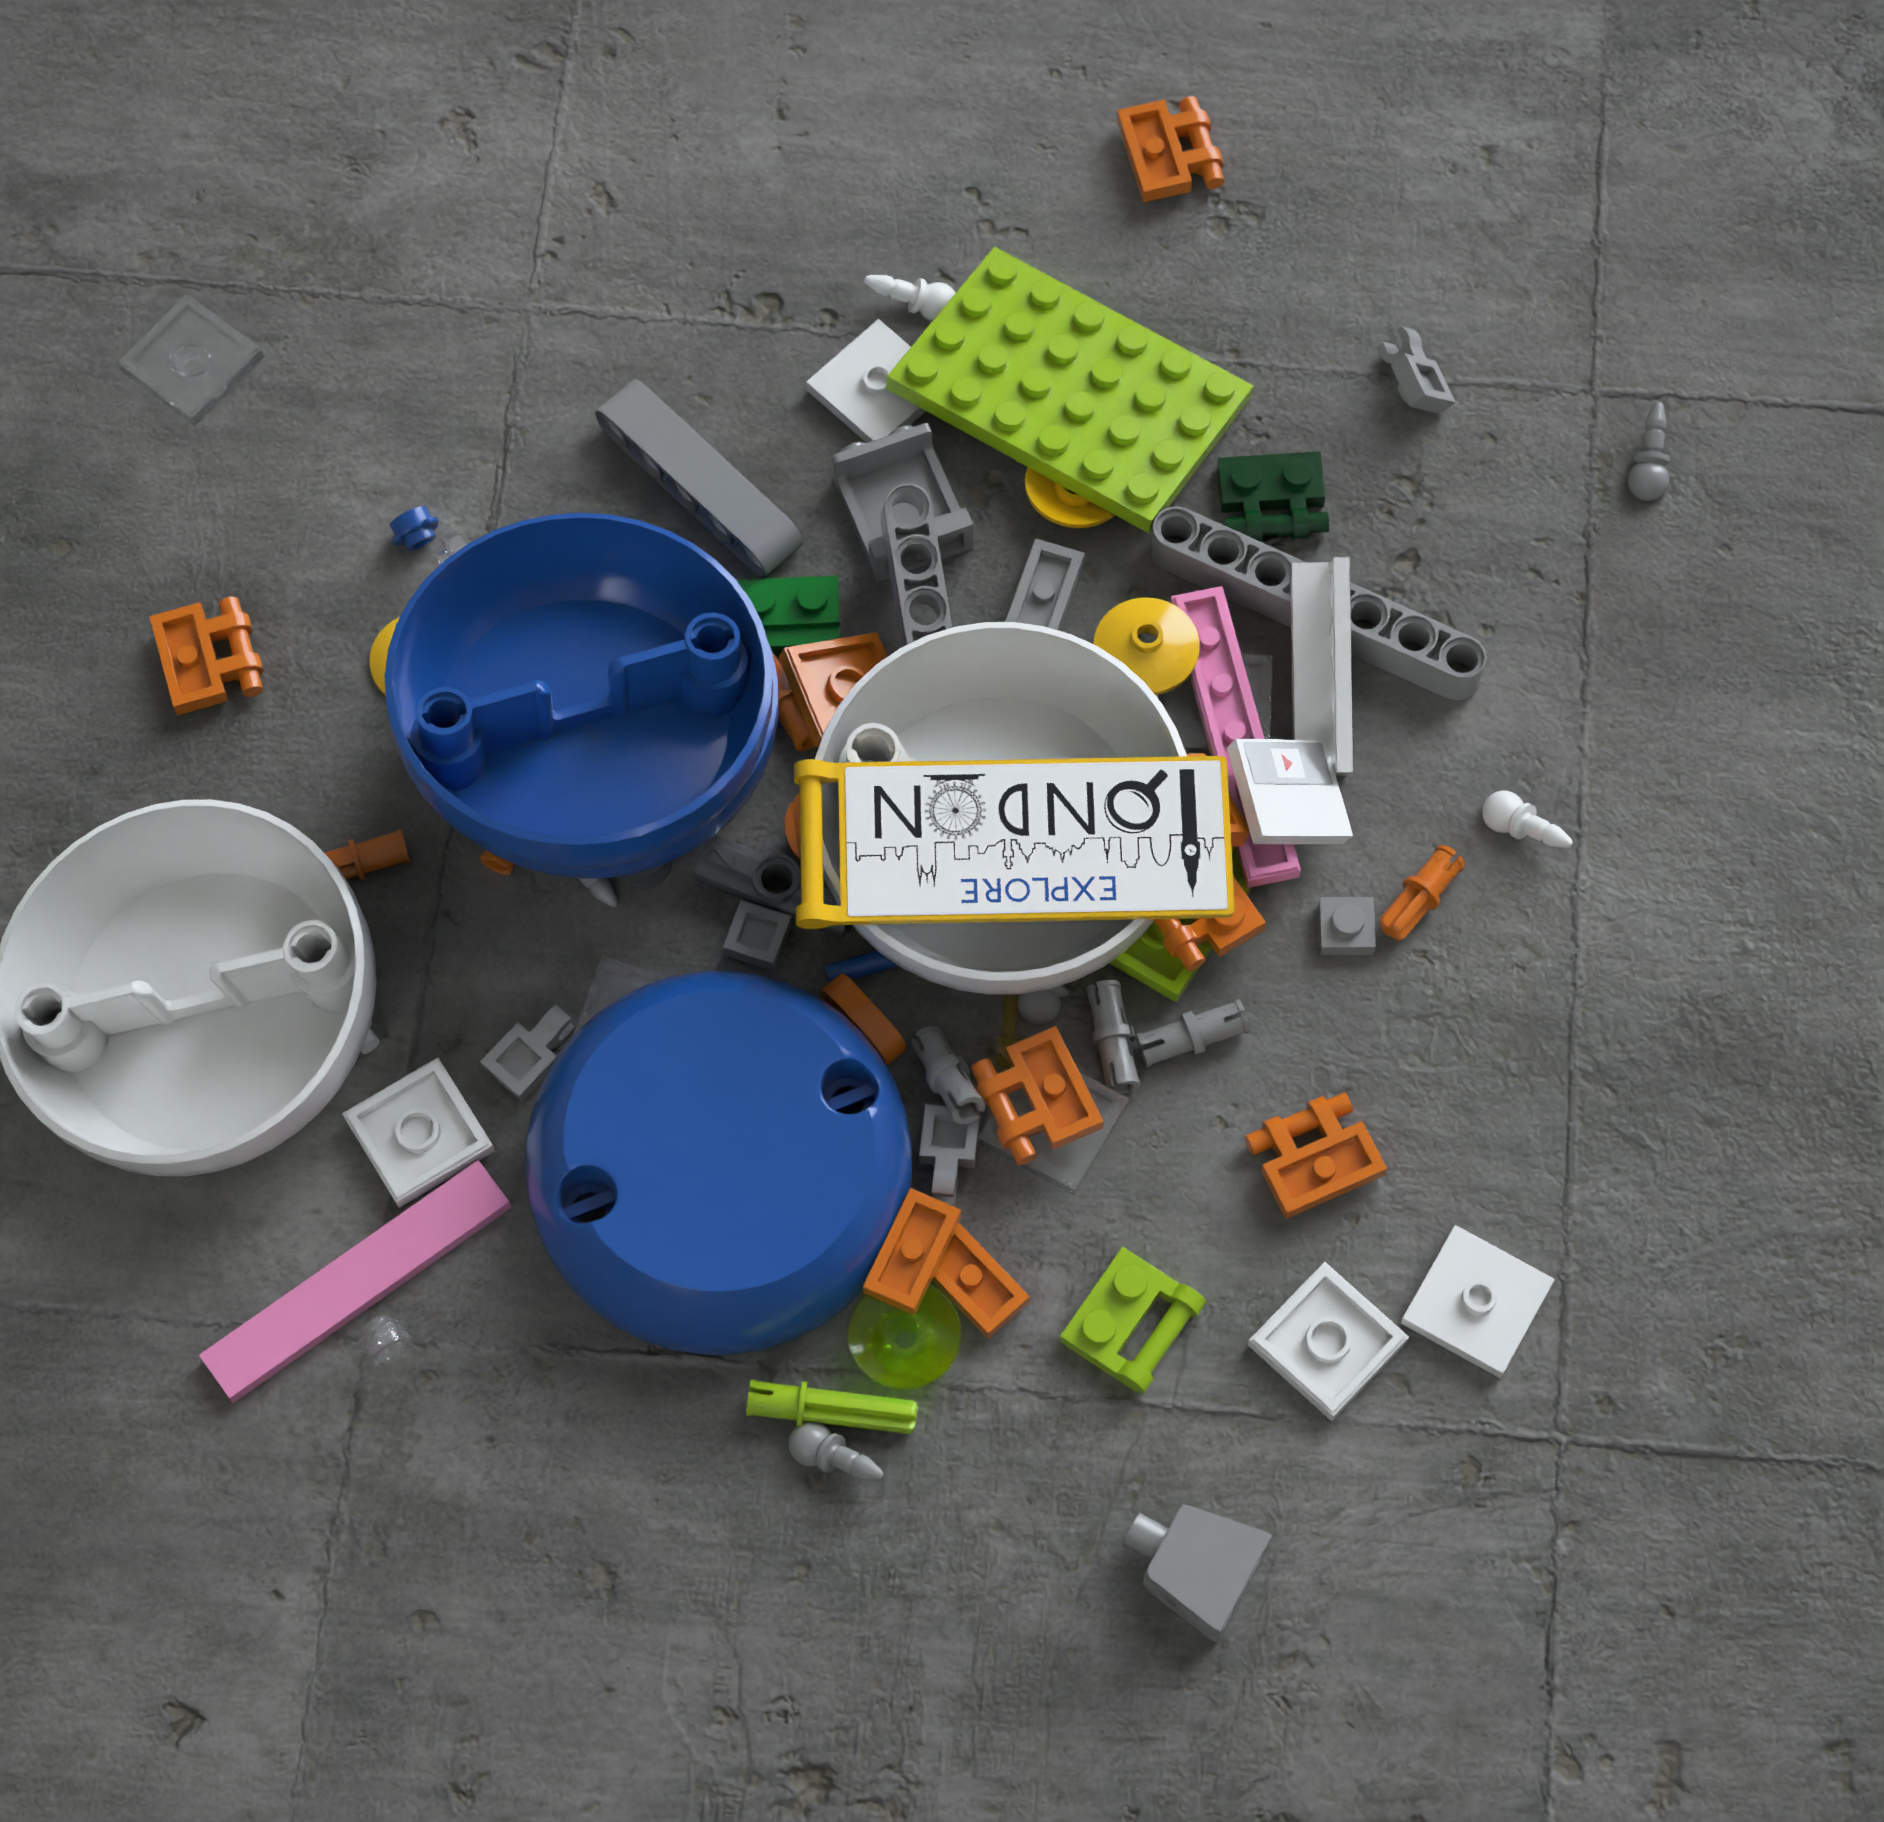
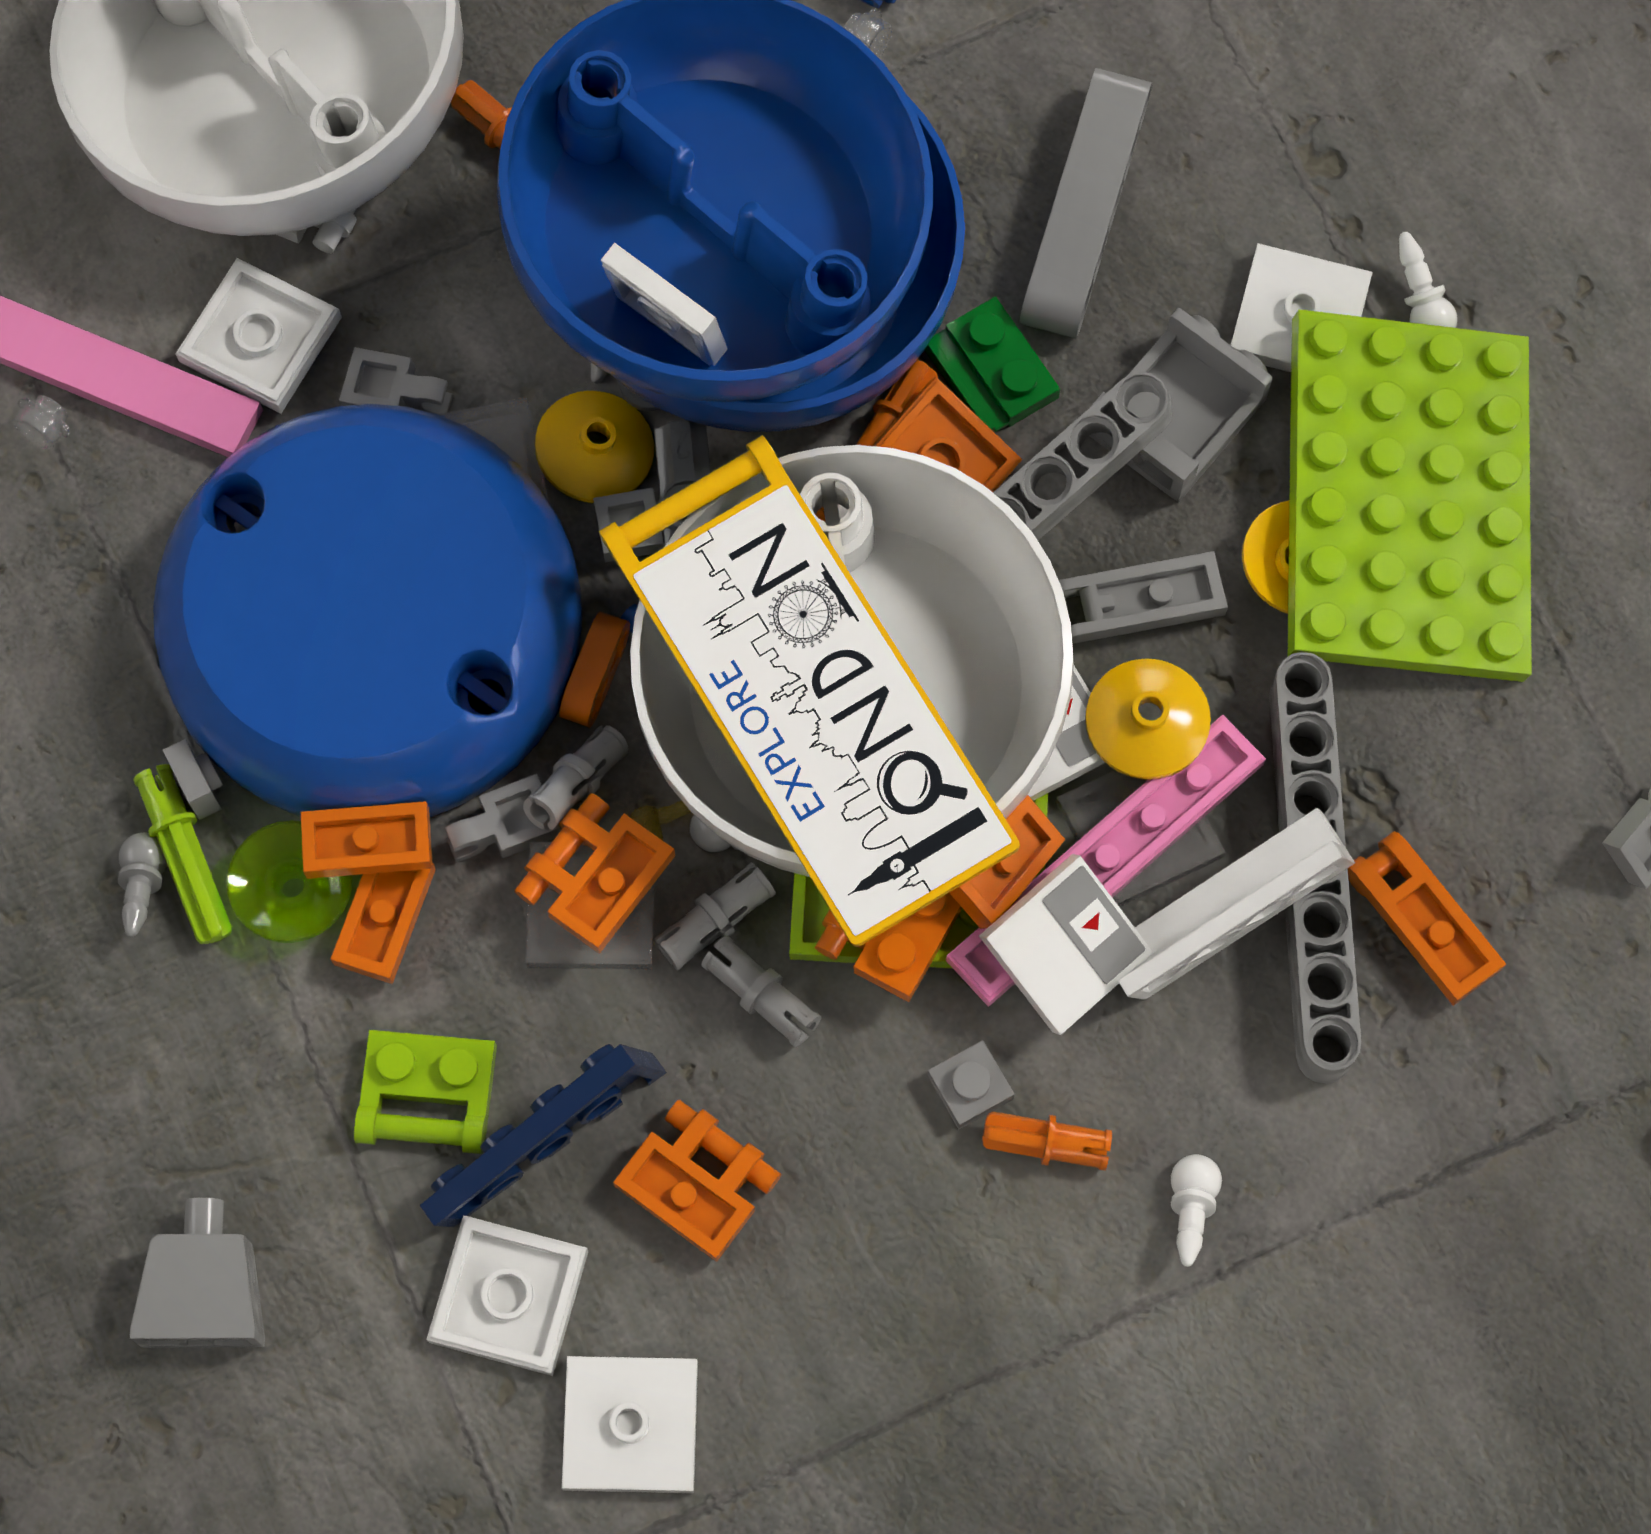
camera: 60 degrees right, 5 degrees up
(651, 771) = (664, 305): none -> white tile
(673, 947) = (587, 468): none -> yellow dish
(774, 1364) = (196, 778): none -> light grey plate
(1218, 1222) = (541, 1135): none -> dark blue wing
(1273, 483) = (1430, 750): dark green plate -> none
(1402, 551) = (1426, 919): none -> orange plate

